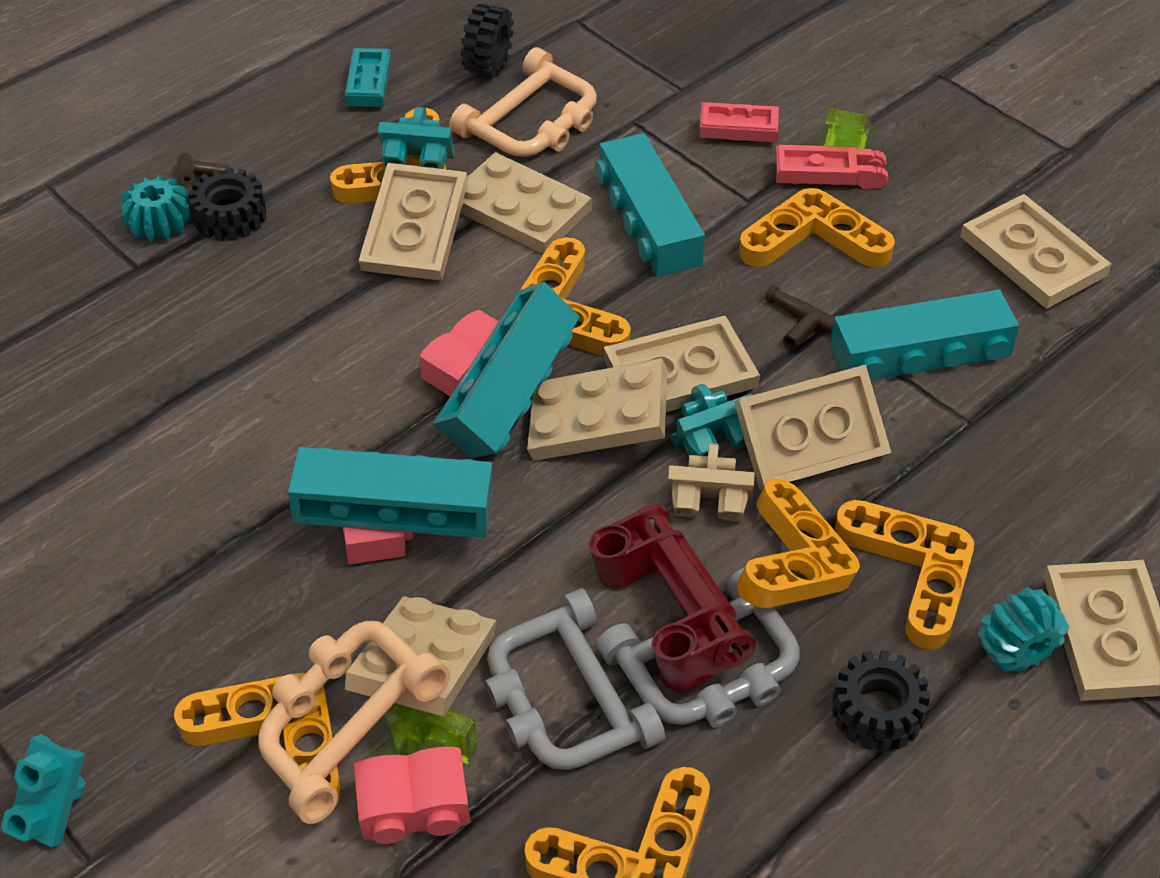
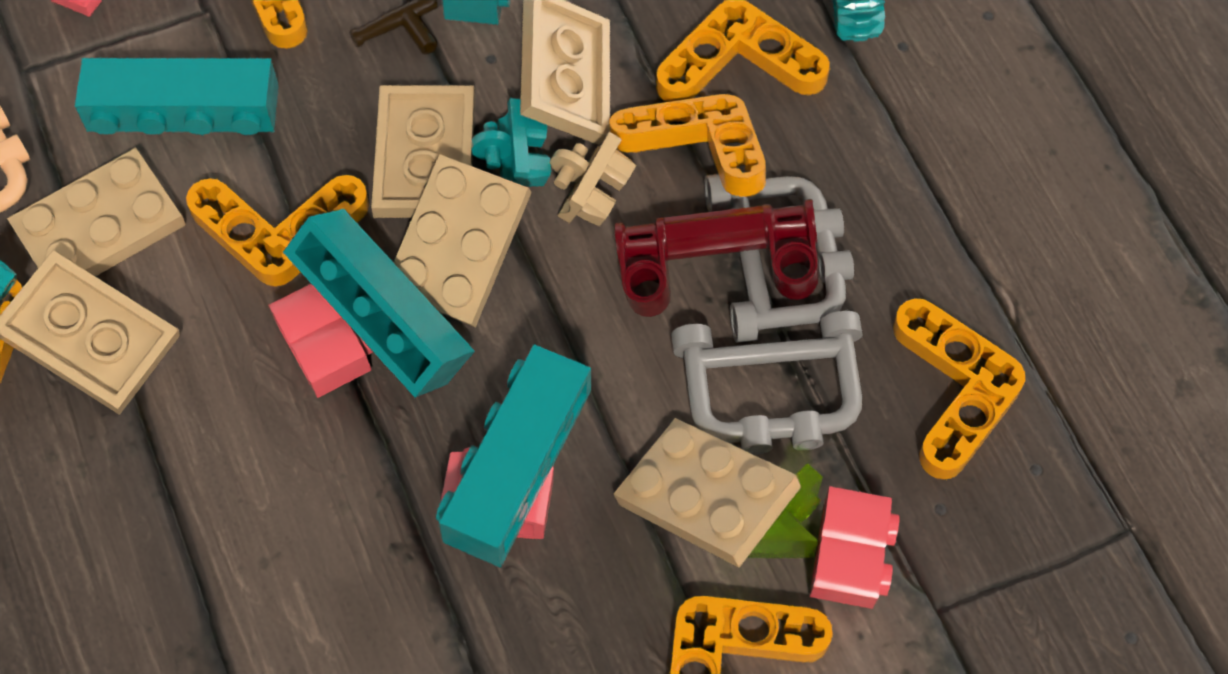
camera: 70 degrees left, 15 degrees up
(421, 675) = (717, 619): light nougat bar -> none
(887, 677) = (880, 115): black tyre -> none

